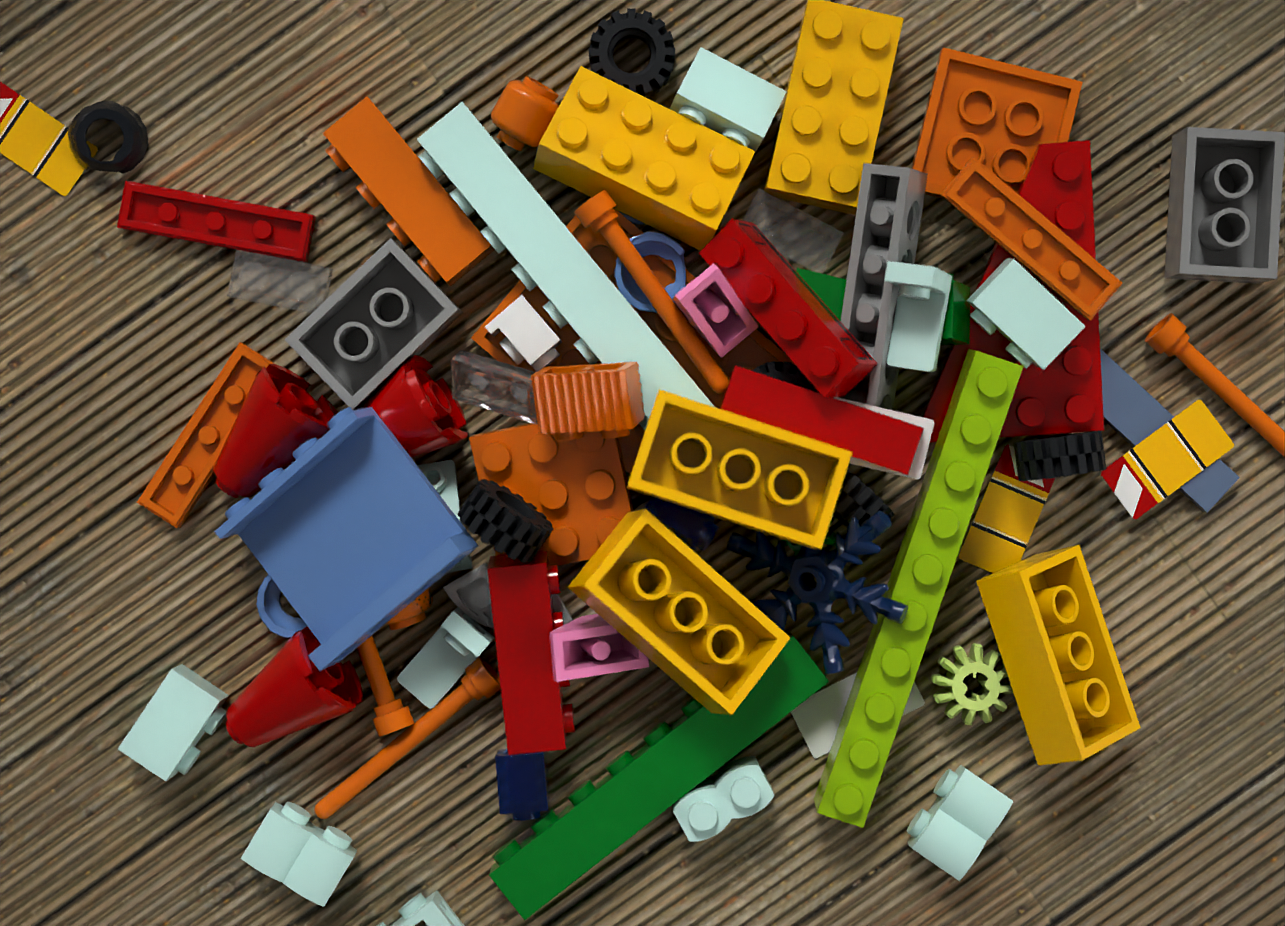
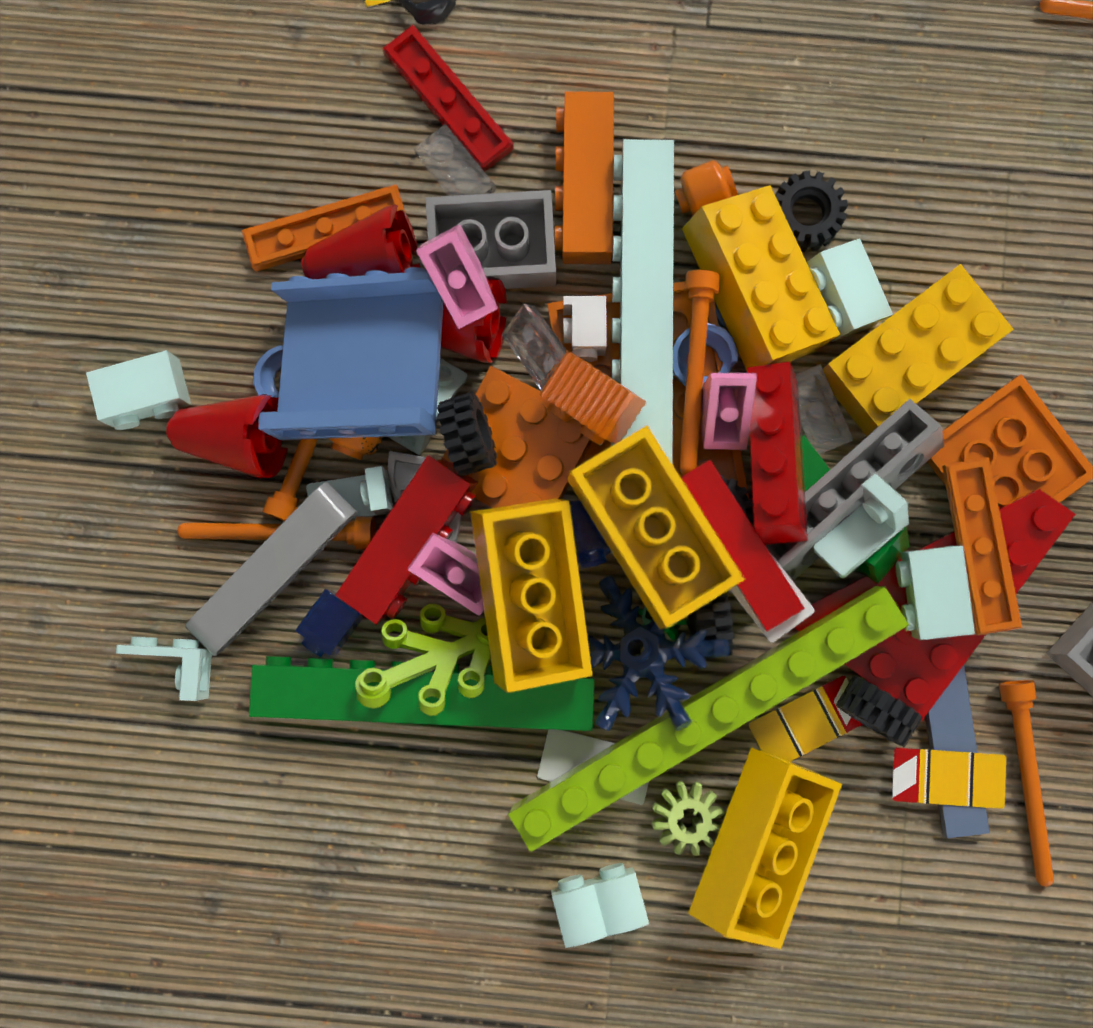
camera: 50 degrees right, 5 degrees down
(300, 852) = (143, 544): light aqua brick -> none
(378, 390) = (458, 276): none -> bright pink slope
(432, 779) = (270, 568): none -> light grey beam
(641, 729) = (436, 655): none -> lime plant
(734, 793) = (440, 747): light aqua brick -> none

